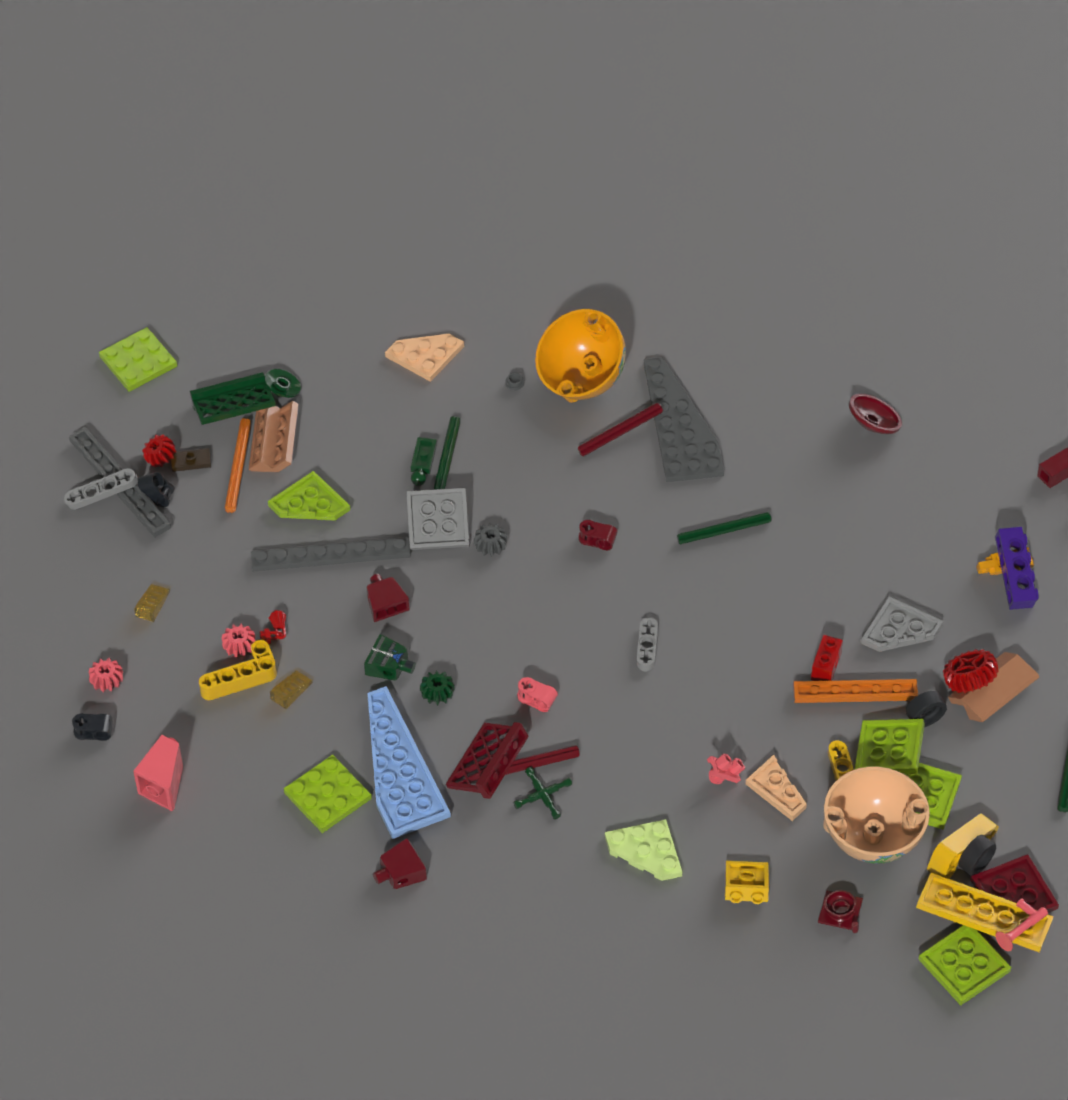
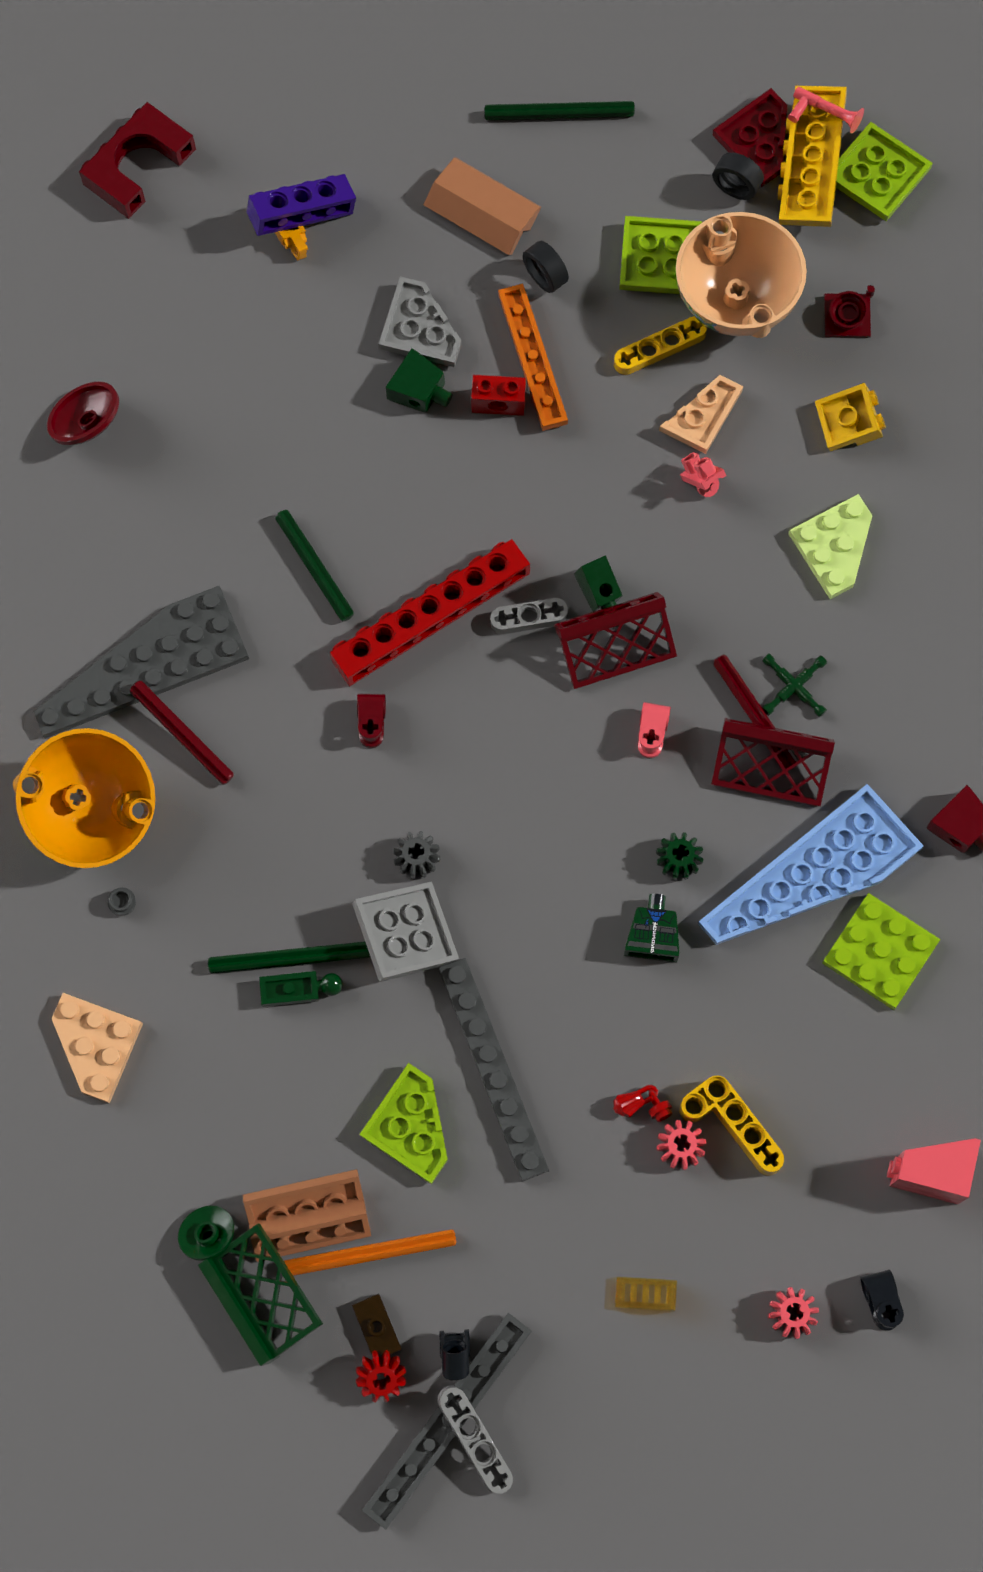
camera: 105 degrees left, 20 degrees up
(138, 359) = (201, 1480): lime plate -> none
(285, 701) = (729, 1059): clear yellow slope -> none
(386, 598) = (552, 967): dark red torso -> none
(622, 680) = (610, 617): none -> dark red fence
(652, 683) = (595, 577): none -> dark green torso
(666, 585) = (425, 625): none -> red brick
(850, 614) = (418, 384): none -> dark green torso
(891, 744) = (612, 297): lime plate -> none
(948, 851) = (724, 191): yellow beam -> none
(970, 671) = (462, 241): red gear -> none

